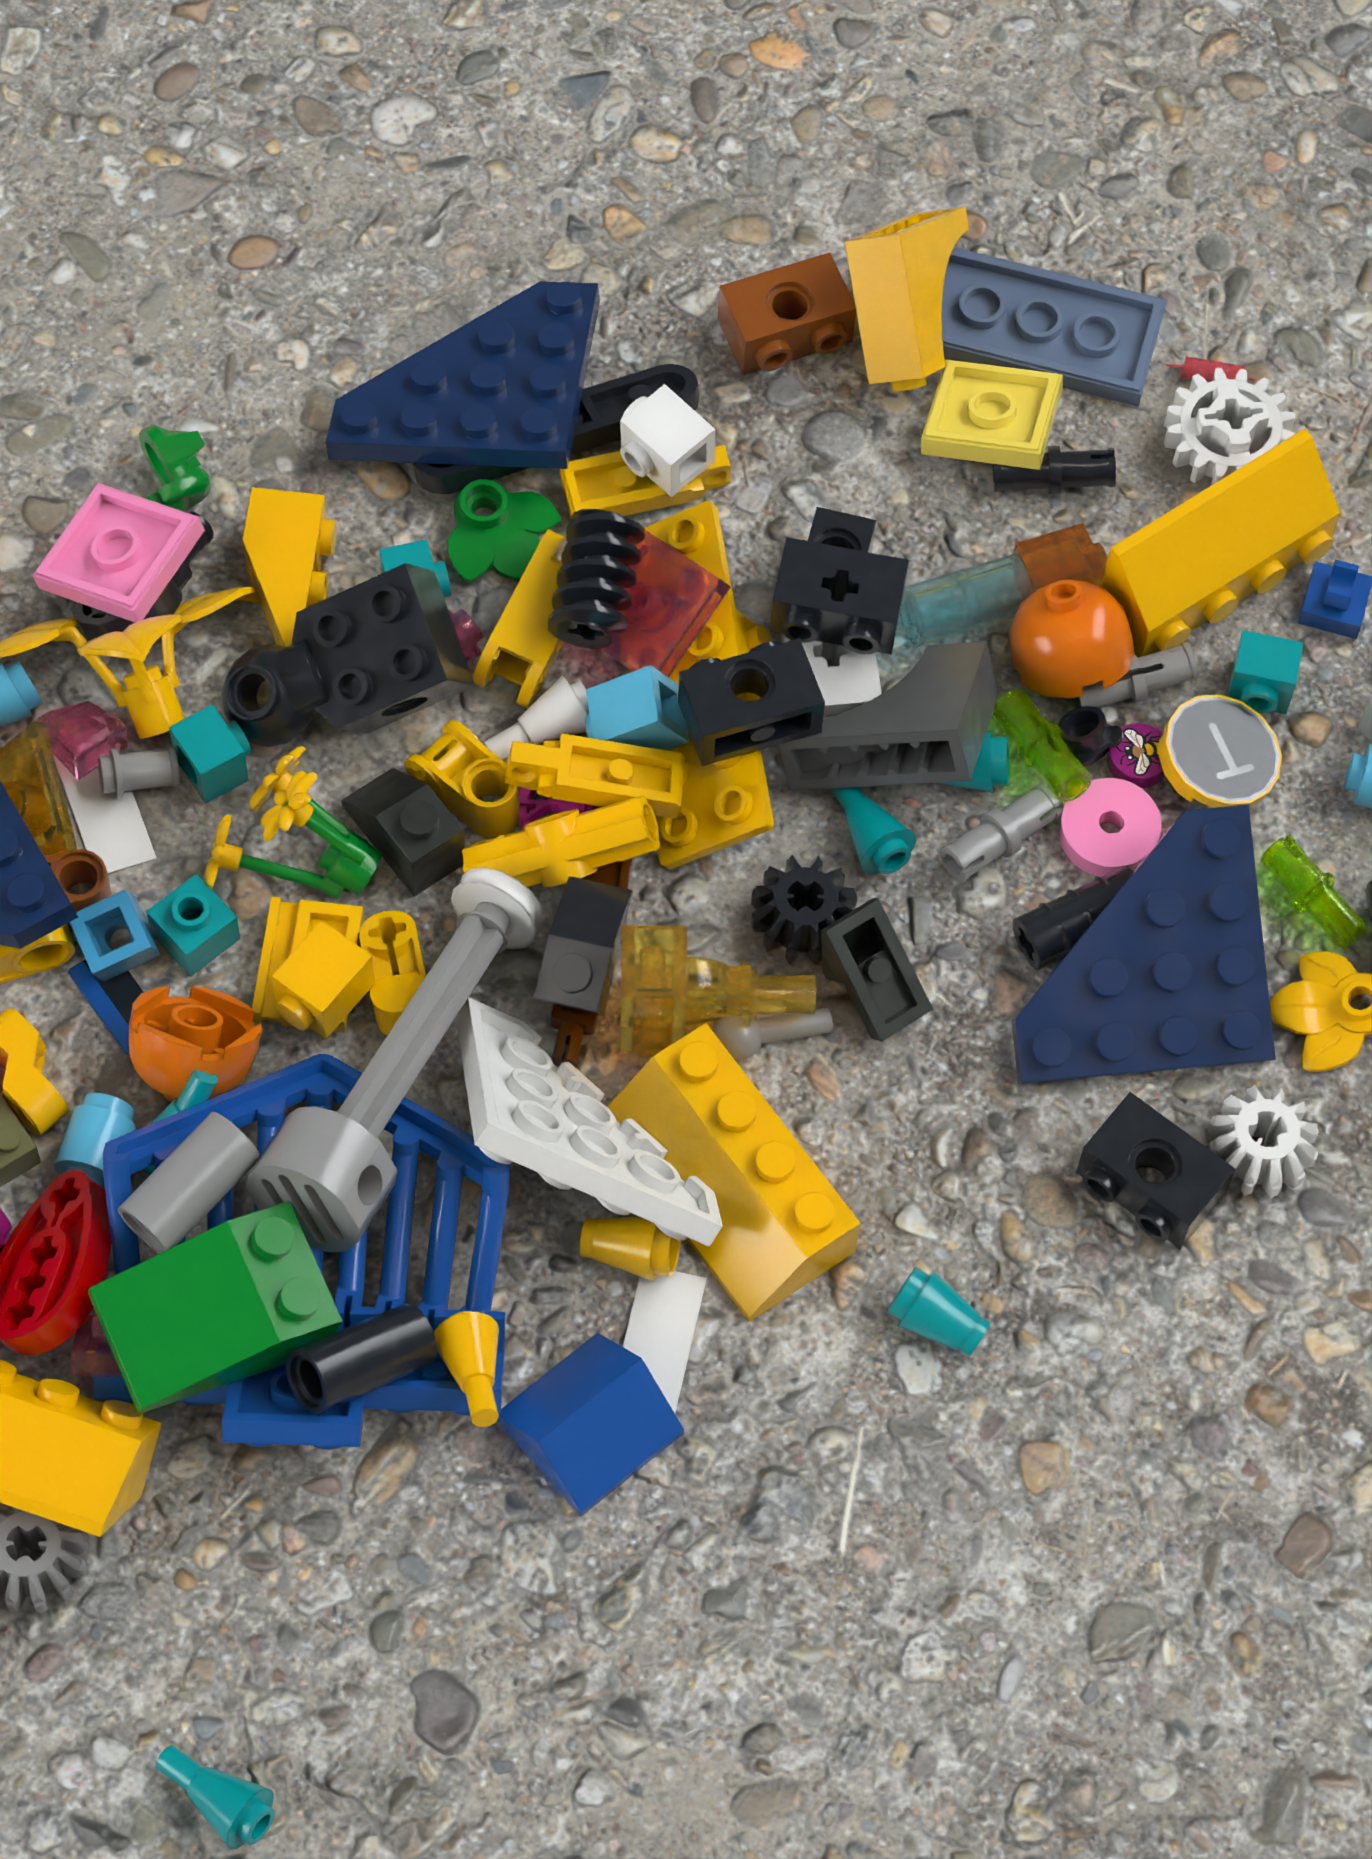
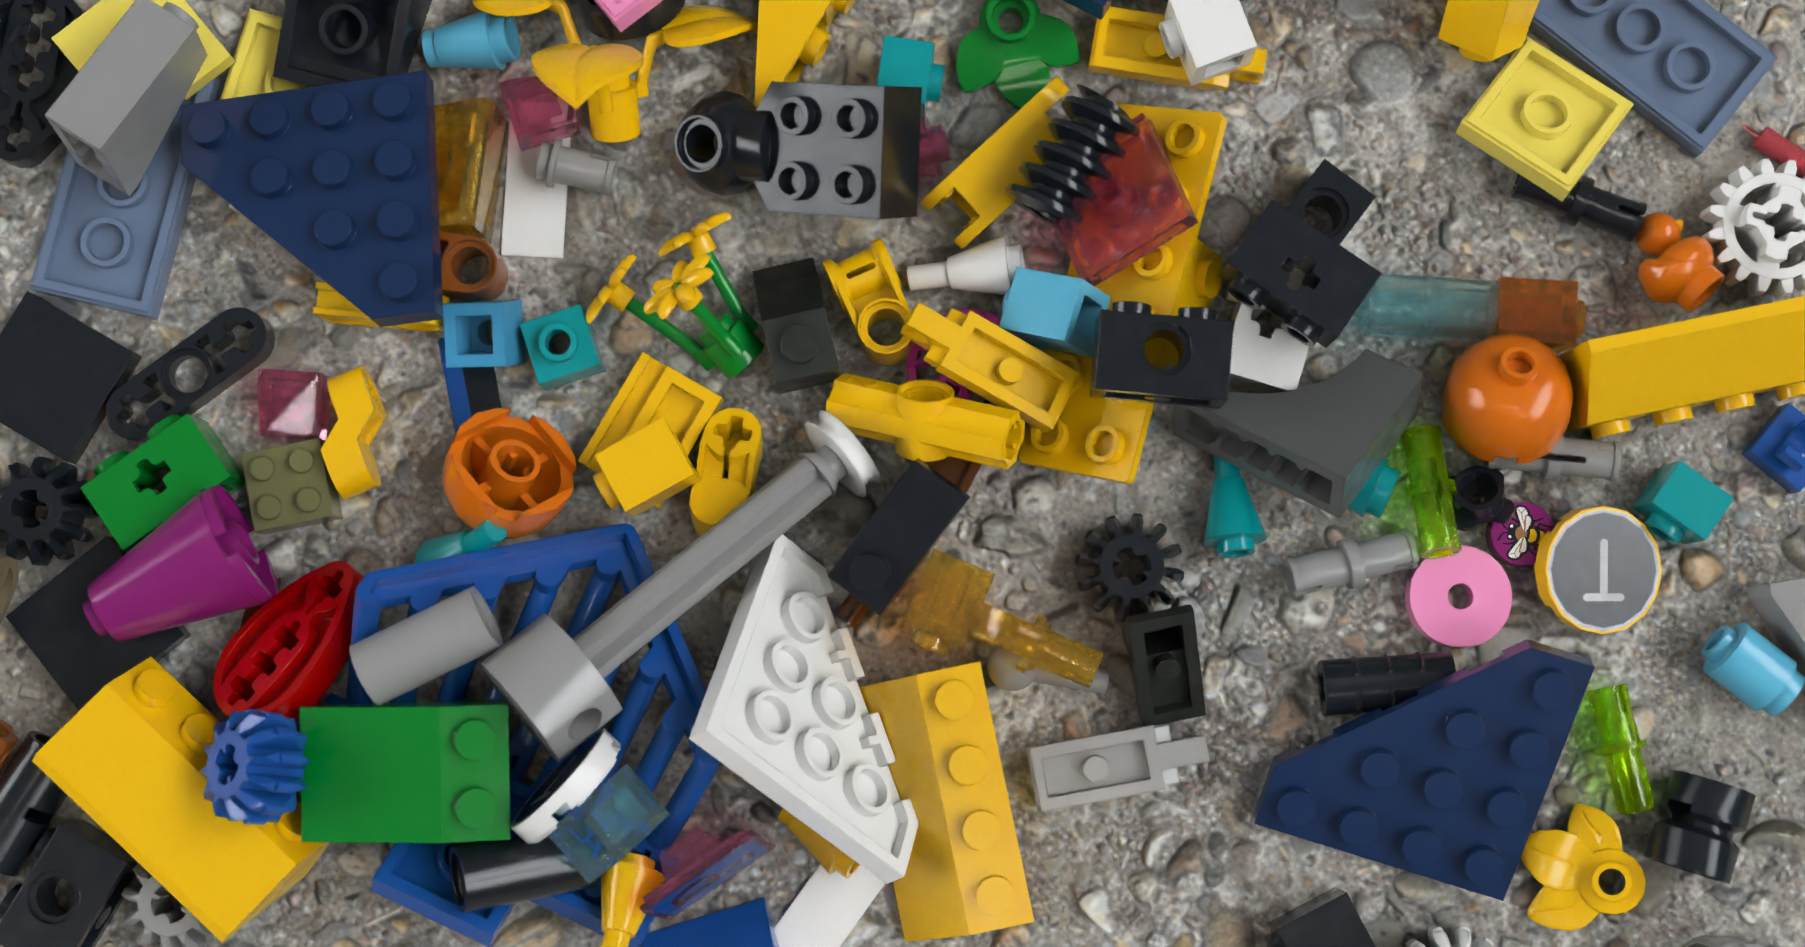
camera: 30 degrees right, 20 degrees up
(70, 1350) = (255, 767): none -> blue gear
(89, 1128) = (389, 531): medium azure brick -> none
(211, 752) = (648, 178): teal plate -> none
(374, 1258) = (566, 786): none -> white tile
(426, 1277) = (608, 824): none -> clear light blue brick
(536, 1300) = (699, 866): none -> clear pink piece
(866, 1083) = (1110, 765): none -> light grey hinge
(1159, 483) = (1684, 266): none -> orange animal

